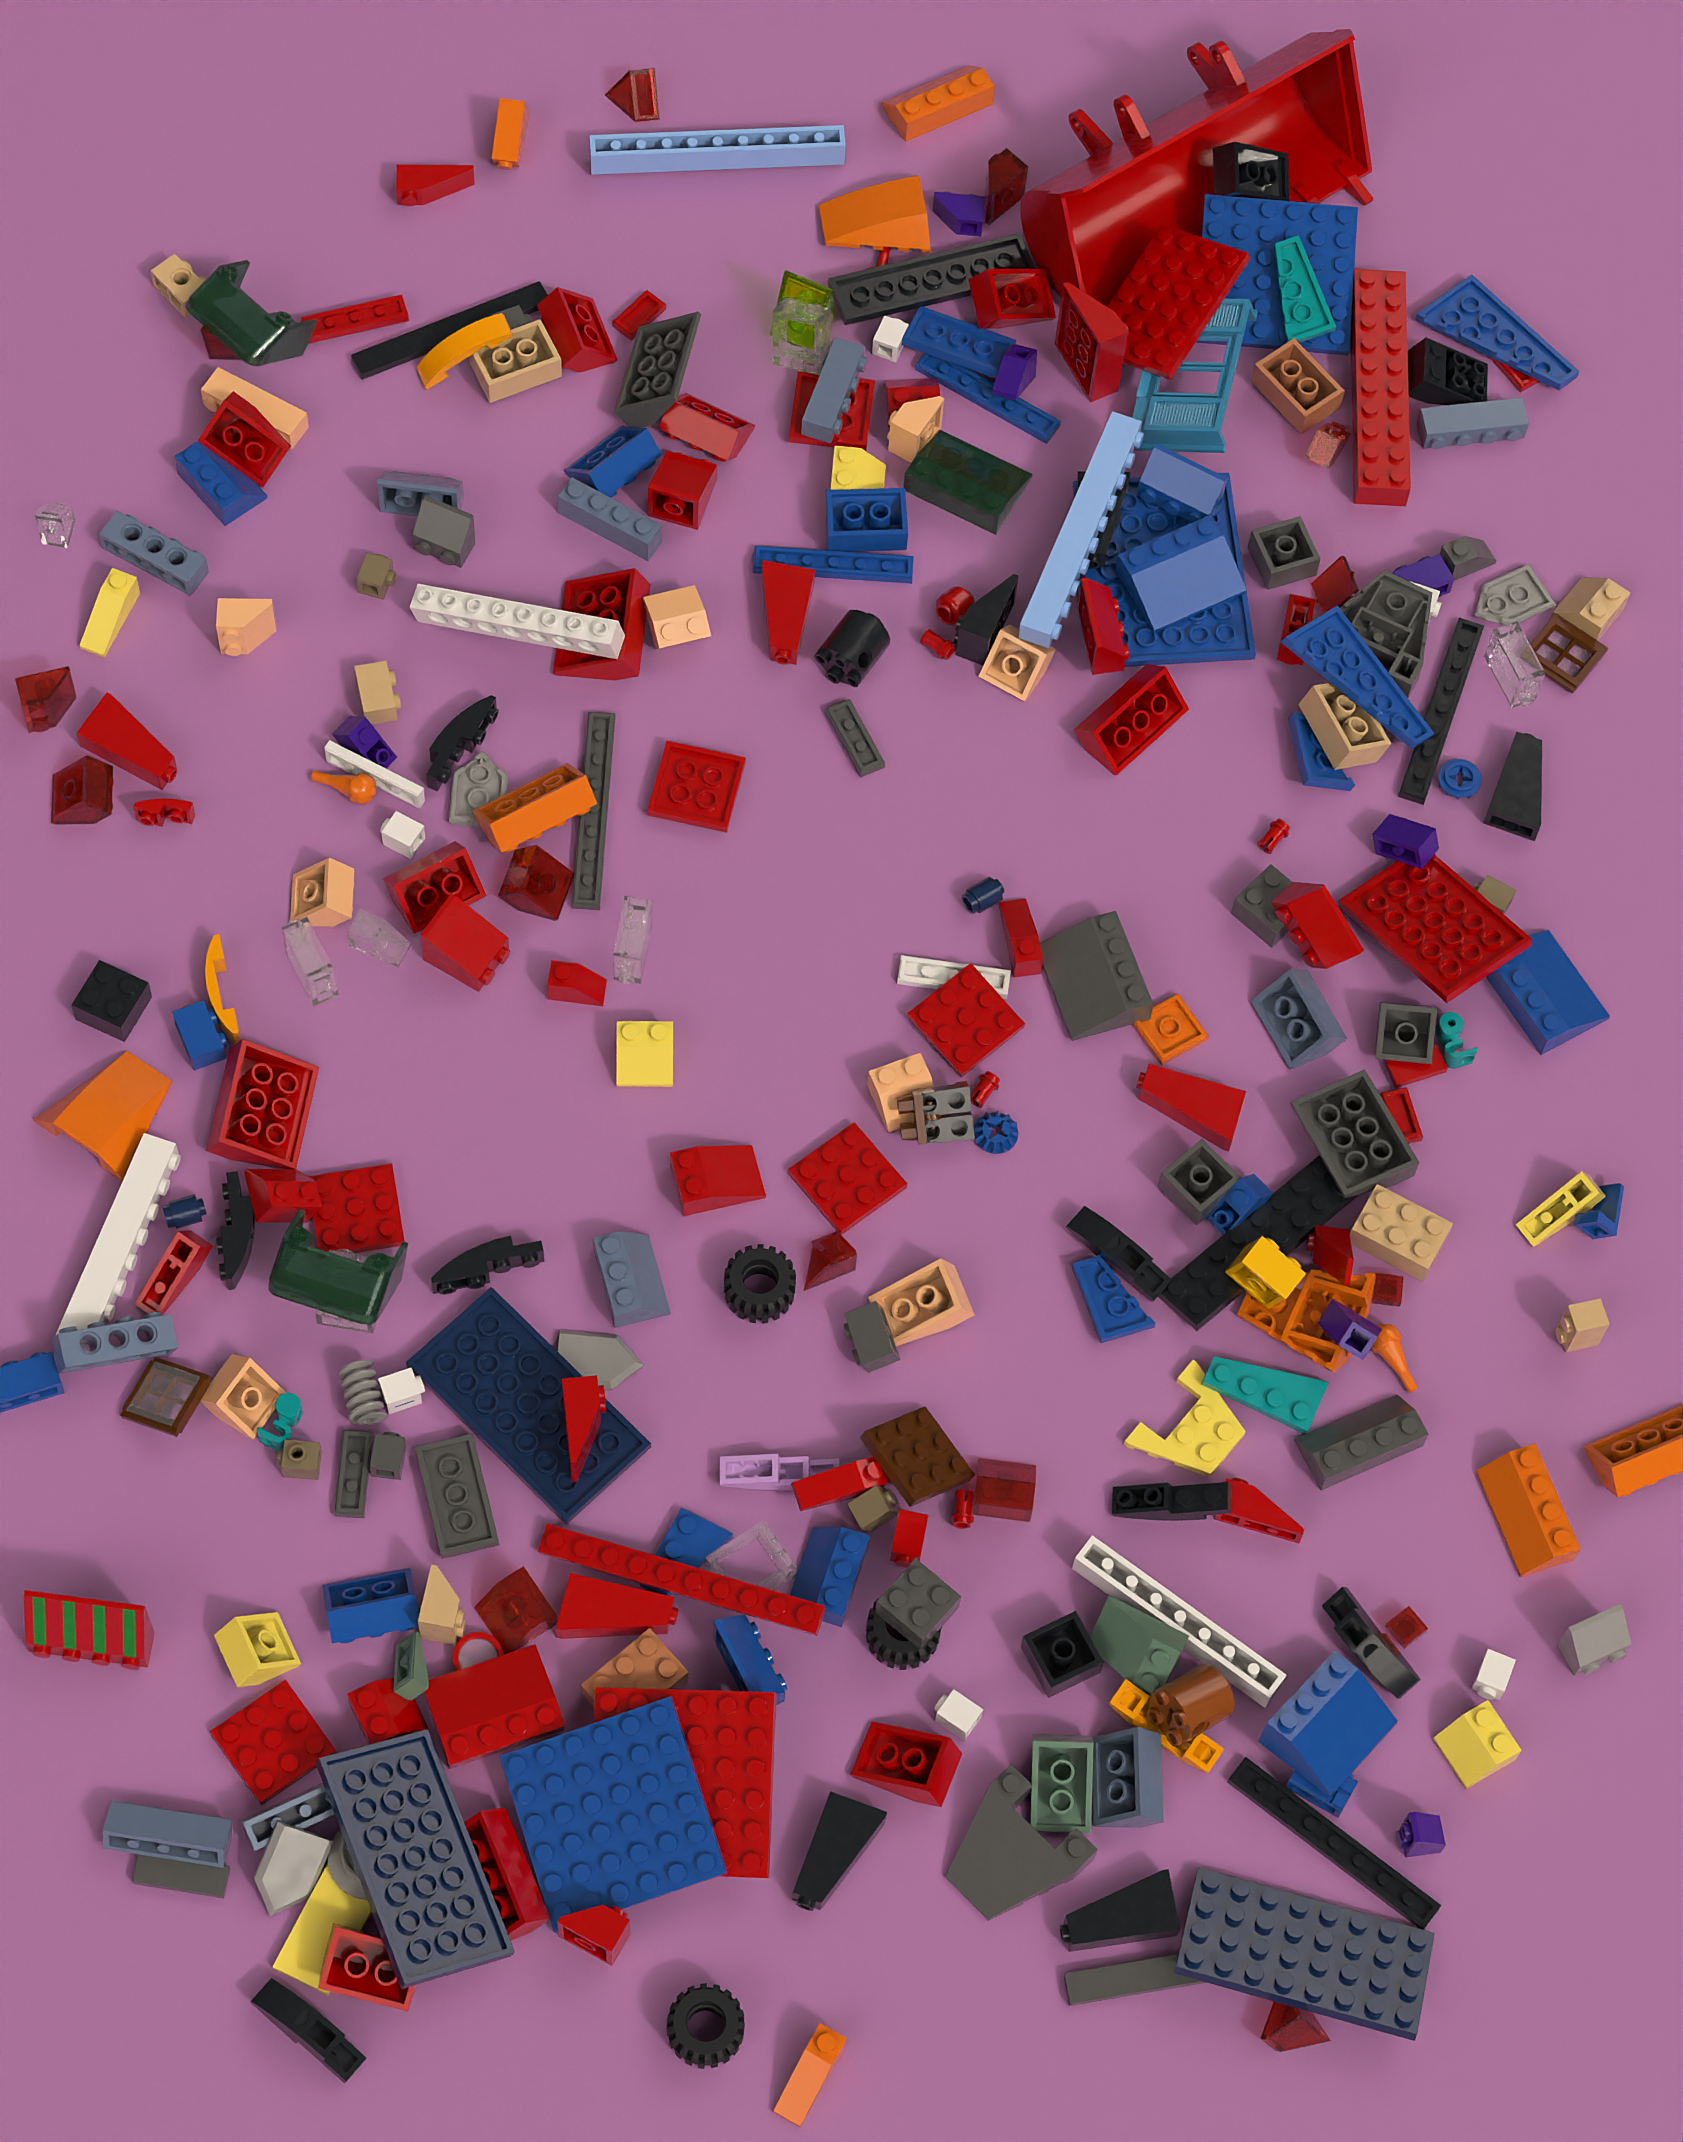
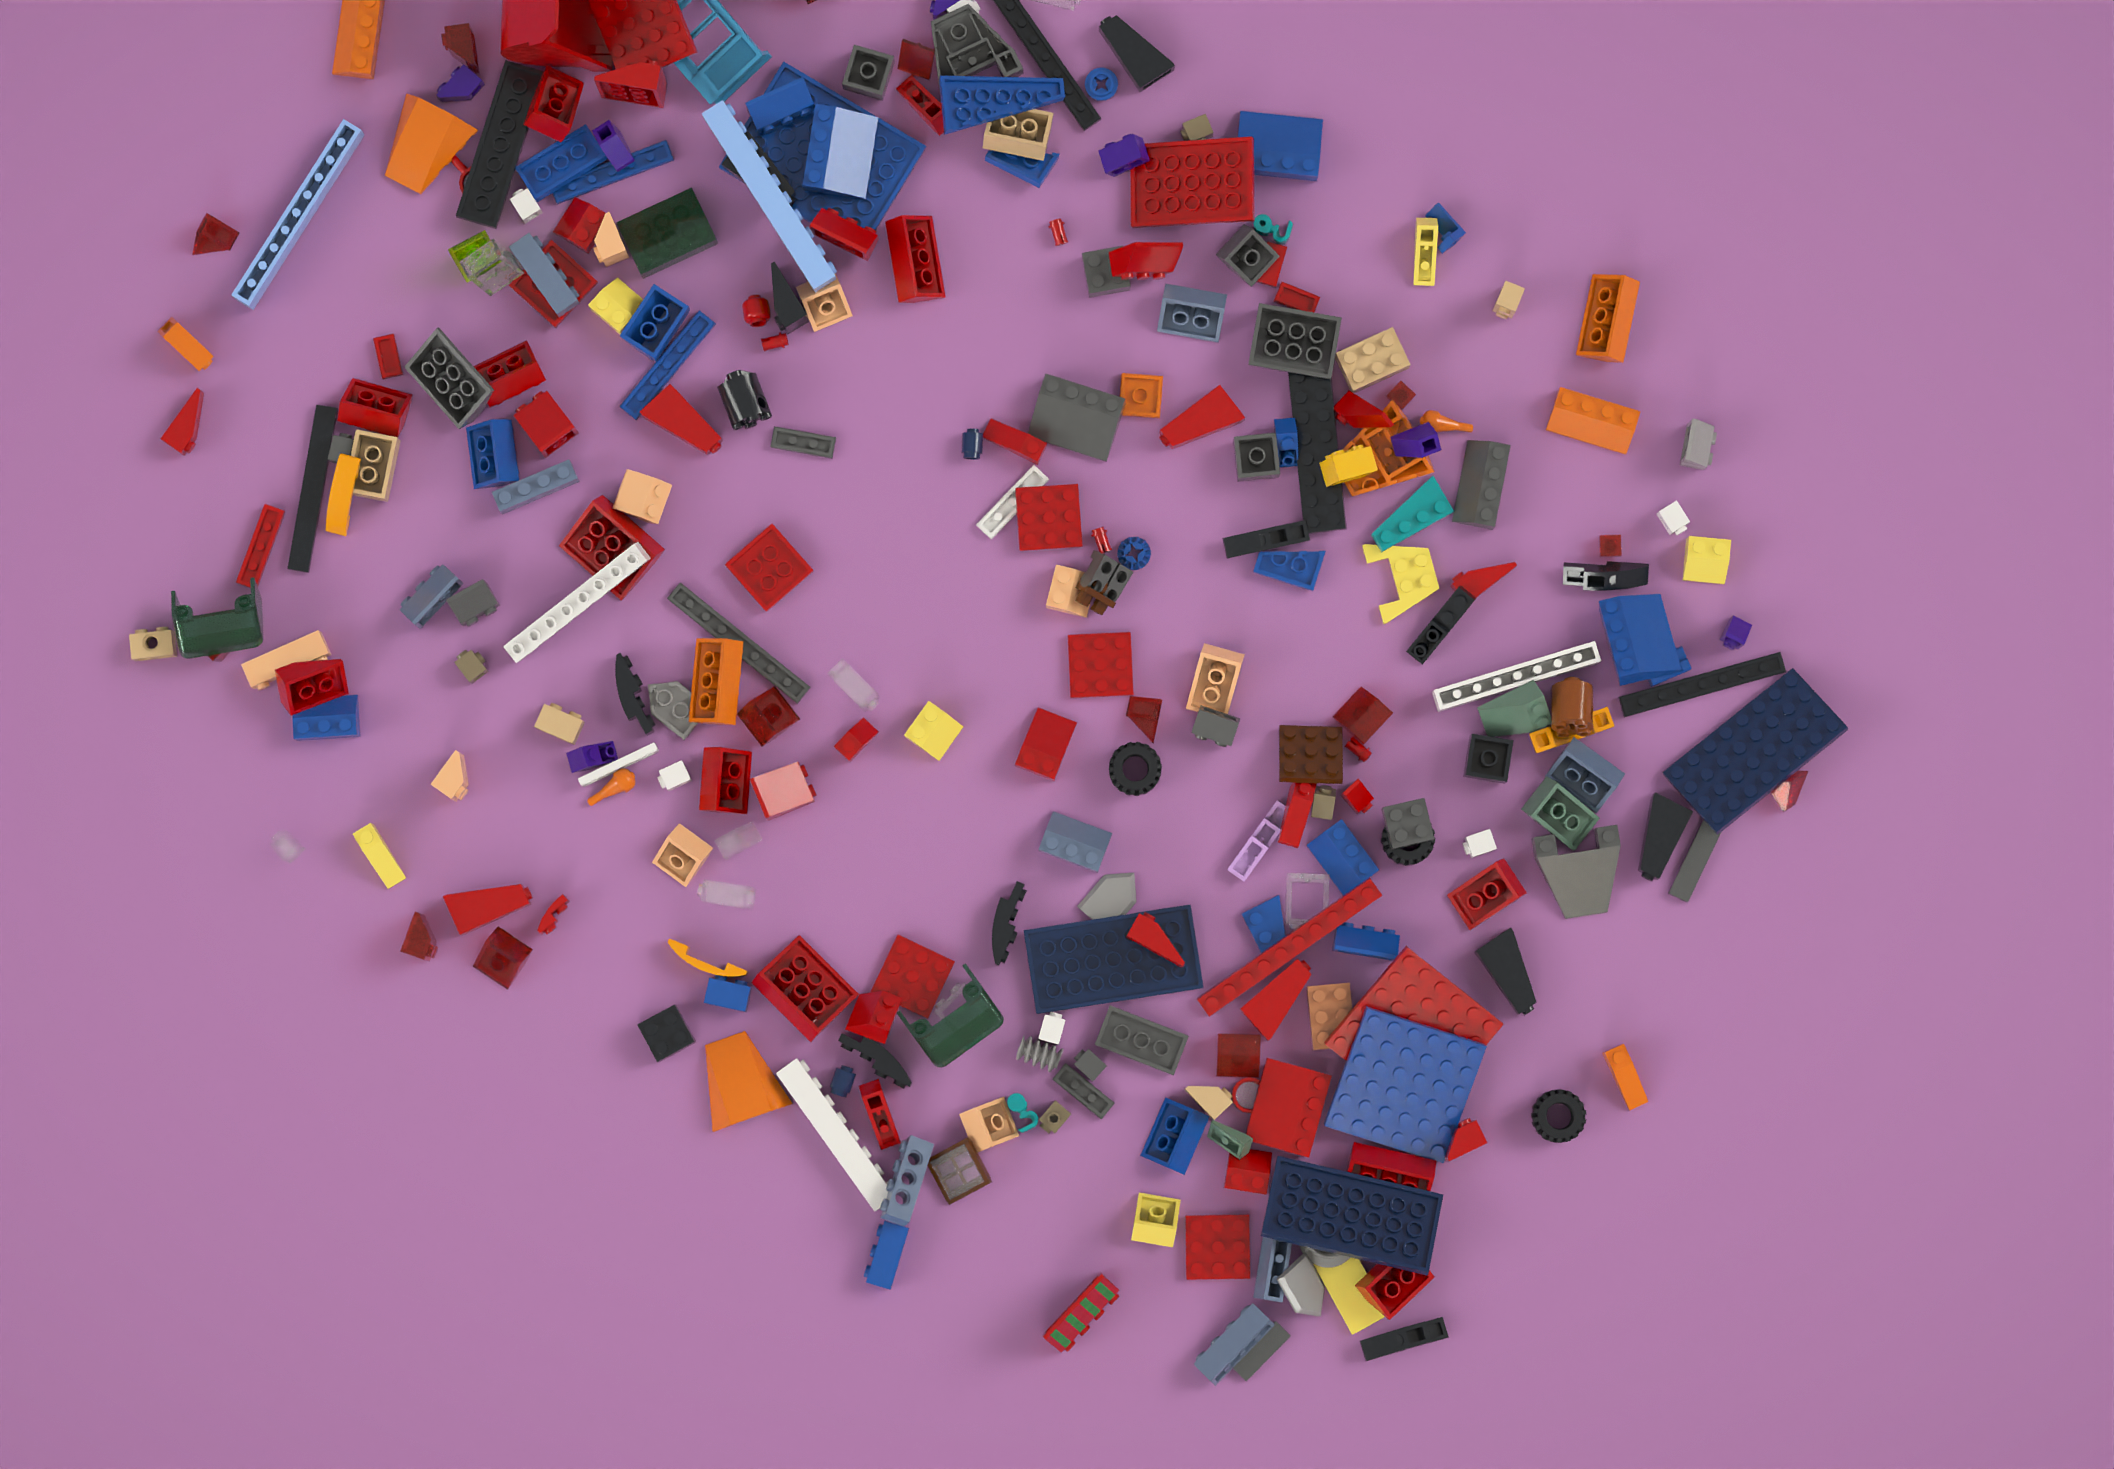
camera: 50 degrees left, 20 degrees up
(185, 577) = (385, 789): sand blue brick -> none

